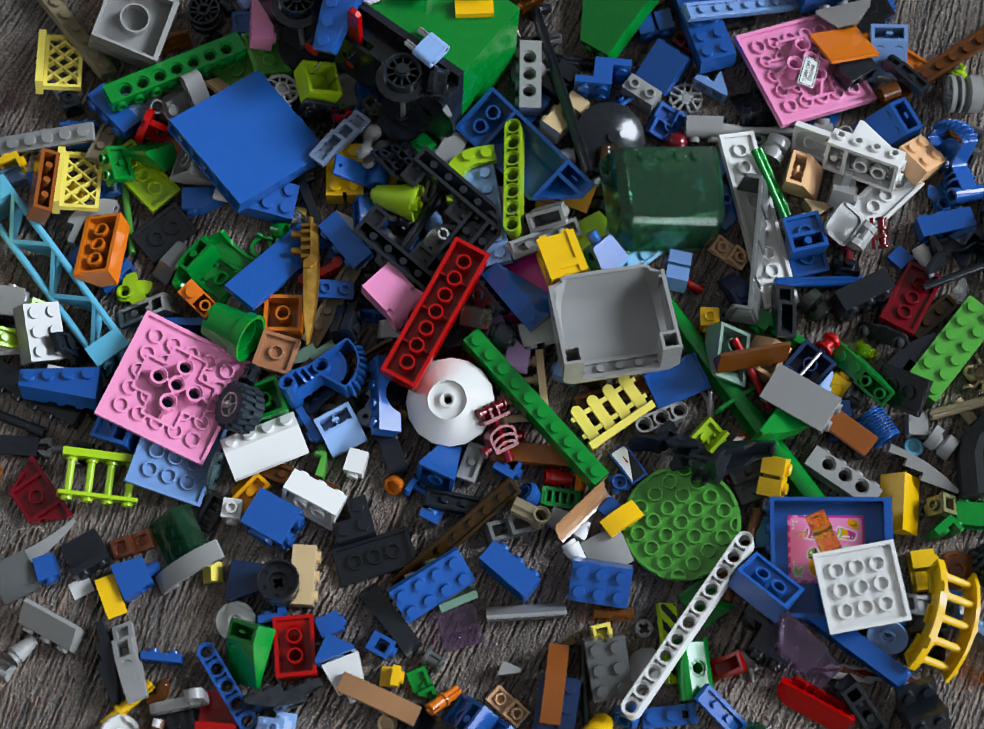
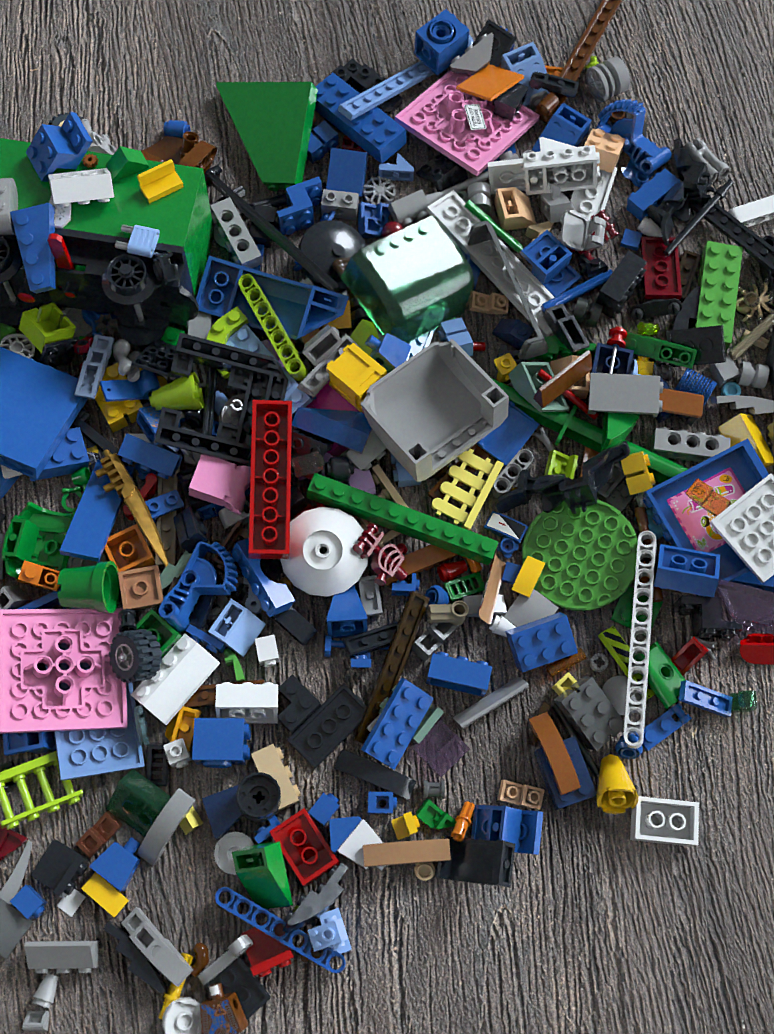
camera: 30 degrees left, 0 degrees up
(155, 656) = (176, 927): blue plate -> none
(394, 485) = (312, 652): orange tile -> none
(508, 670) = (503, 762): light grey slope -> none
(554, 124) = (281, 262): tan arch -> none
(960, 291) = (695, 243): clear slope -> none

